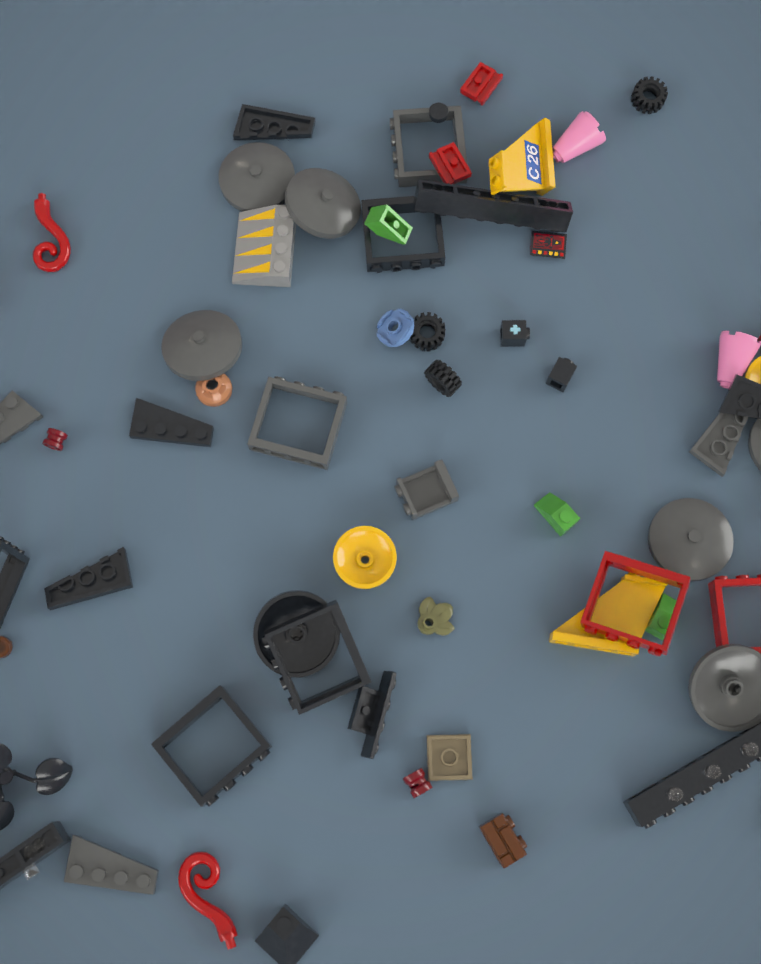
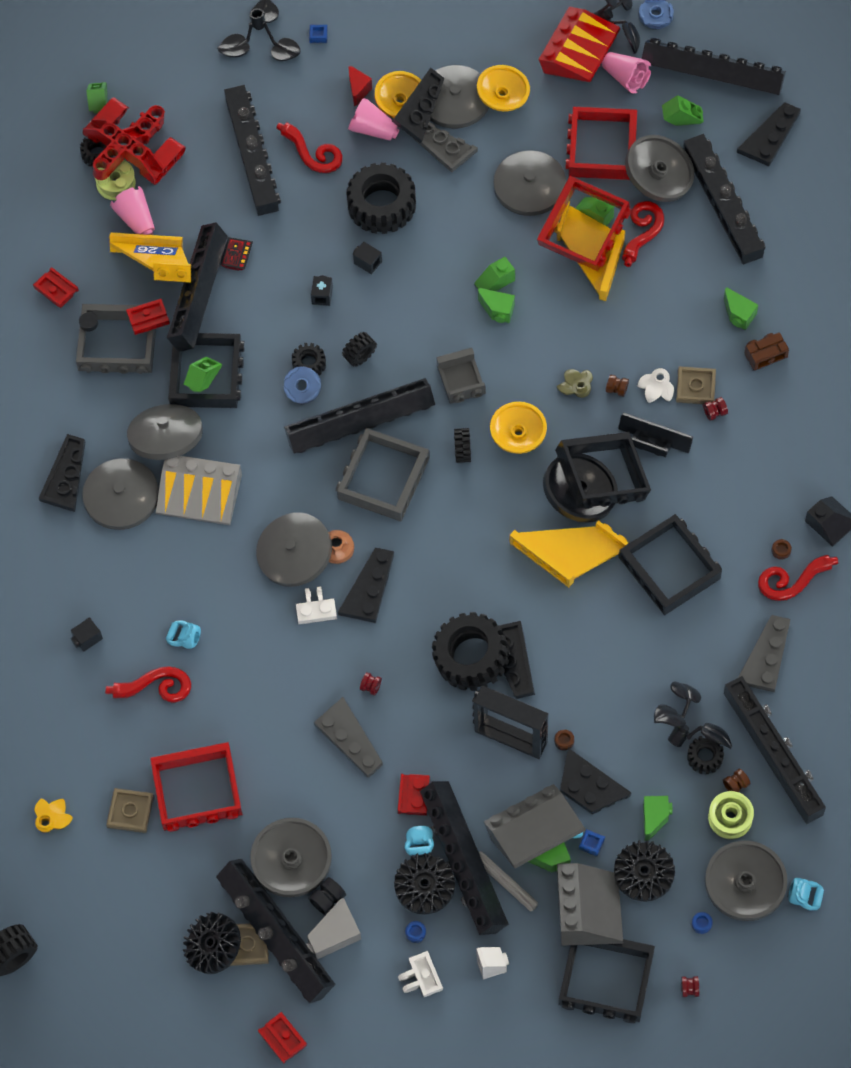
camera: 80 degrees left, 10 degrees down
(72, 514) = (460, 630): none -> black tyre
(98, 168) = (86, 634): none -> black brick
(104, 261) = (188, 636): none -> medium azure piece
(138, 376) = (316, 610): none -> white hinge
(221, 631) = (569, 551): none -> yellow piece
(244, 877) = (781, 549): none -> reddish brown tile
(336, 499) = (462, 445): none -> black tyre
(363, 390) = (359, 416): none -> black piece
(435, 664) = (617, 385): none -> reddish brown wheel
(438, 710) = (655, 388): none -> white plate
(521, 520) = (497, 304): none -> bright green slope
(555, 802) = (739, 309): none -> bright green slope
(622, 107) = (124, 180): none -> yellowish green wheel
(622, 666) = (632, 248): none -> red plant
(651, 358) = (381, 217): none -> black tyre
(666, 88) = (151, 166): none -> red piece
(677, 240) = (251, 150): none -> black piece
(704, 281) = (294, 135): none -> red plant
(713, 84) = (97, 96): none -> bright green slope

